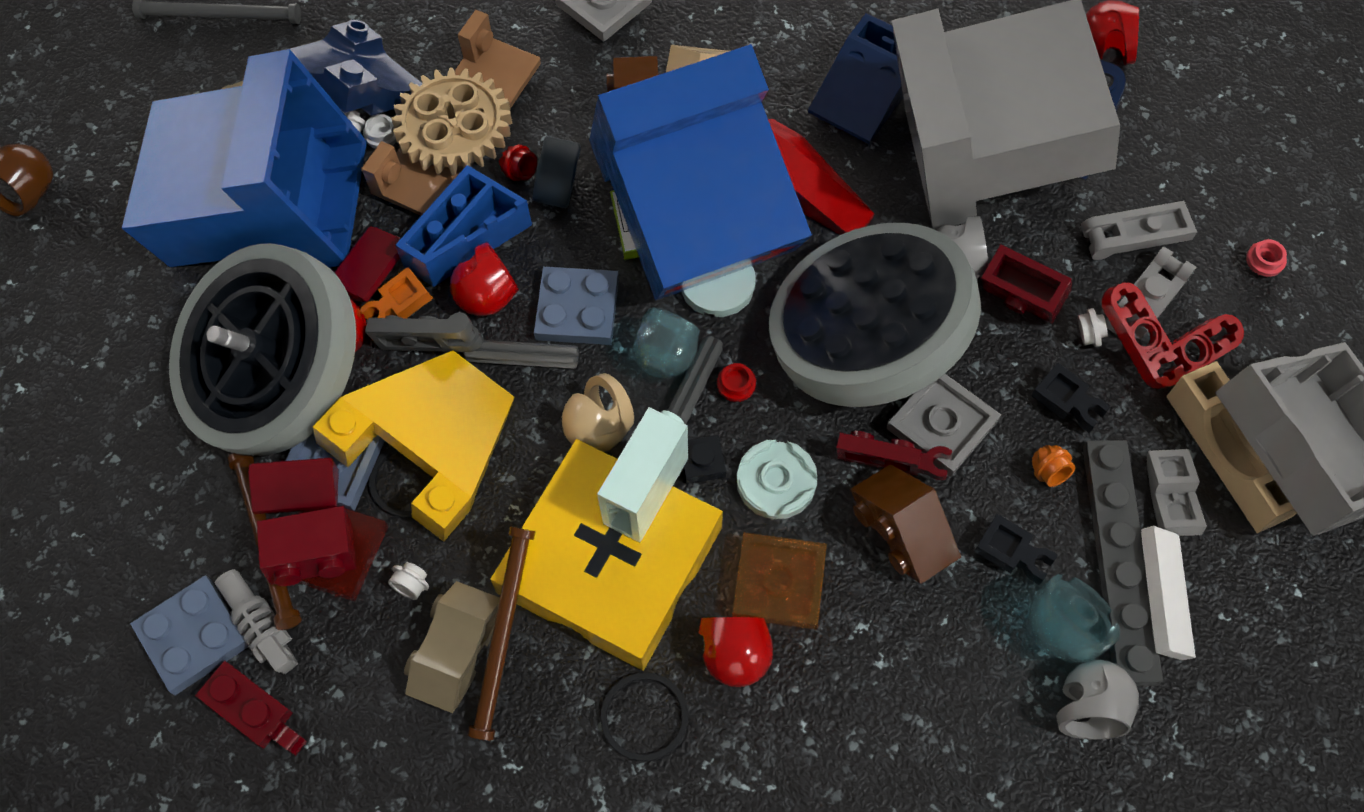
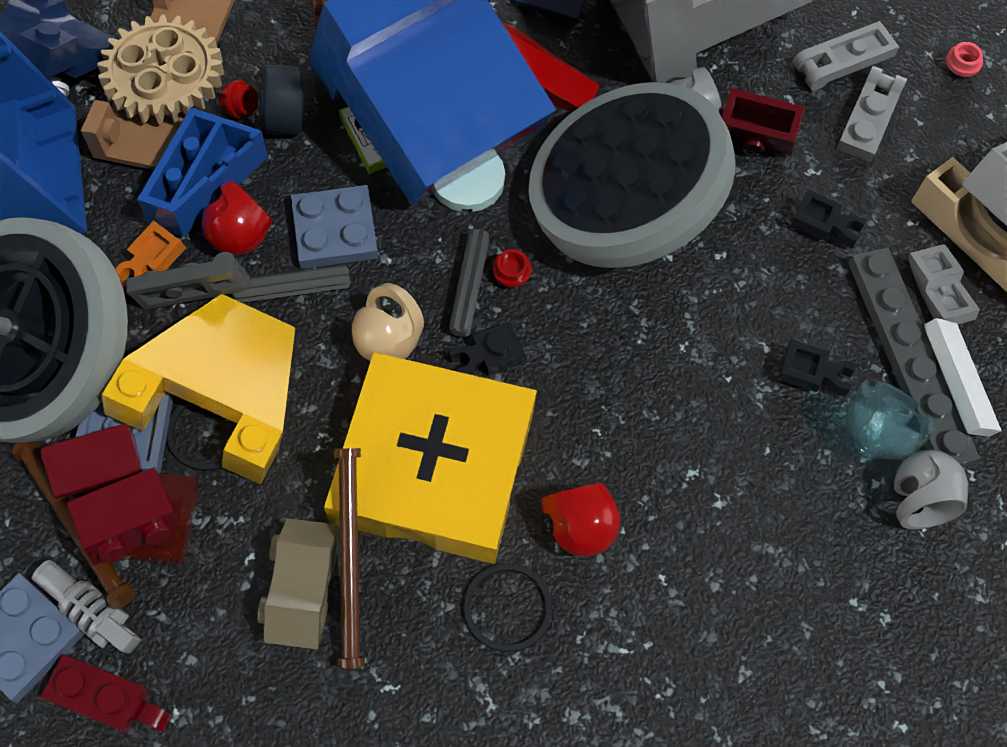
camera: 20 degrees left, 0 degrees up
(368, 263) = (113, 222): dark red slope -> none
(378, 129) = (84, 92): white plate -> none
(408, 580) = (236, 529): white plate -> none
(644, 473) = (456, 368): light aqua brick -> none
(665, 343) = (435, 243): clear light blue helmet -> none
(776, 479) = (575, 352): light aqua tile -> none
(780, 580) = (605, 445): clear orange plate -> none
(902, 454) = (683, 305): dark red plate -> none
(910, 521) = (715, 359): reddish brown brick -> none
(944, 417) = (718, 267): light grey plate -> none
(1052, 465) = (828, 283): orange plate -> none
(1092, 328) = (829, 151): white plate -> none
(1160, 349) = (896, 159): red beam -> none

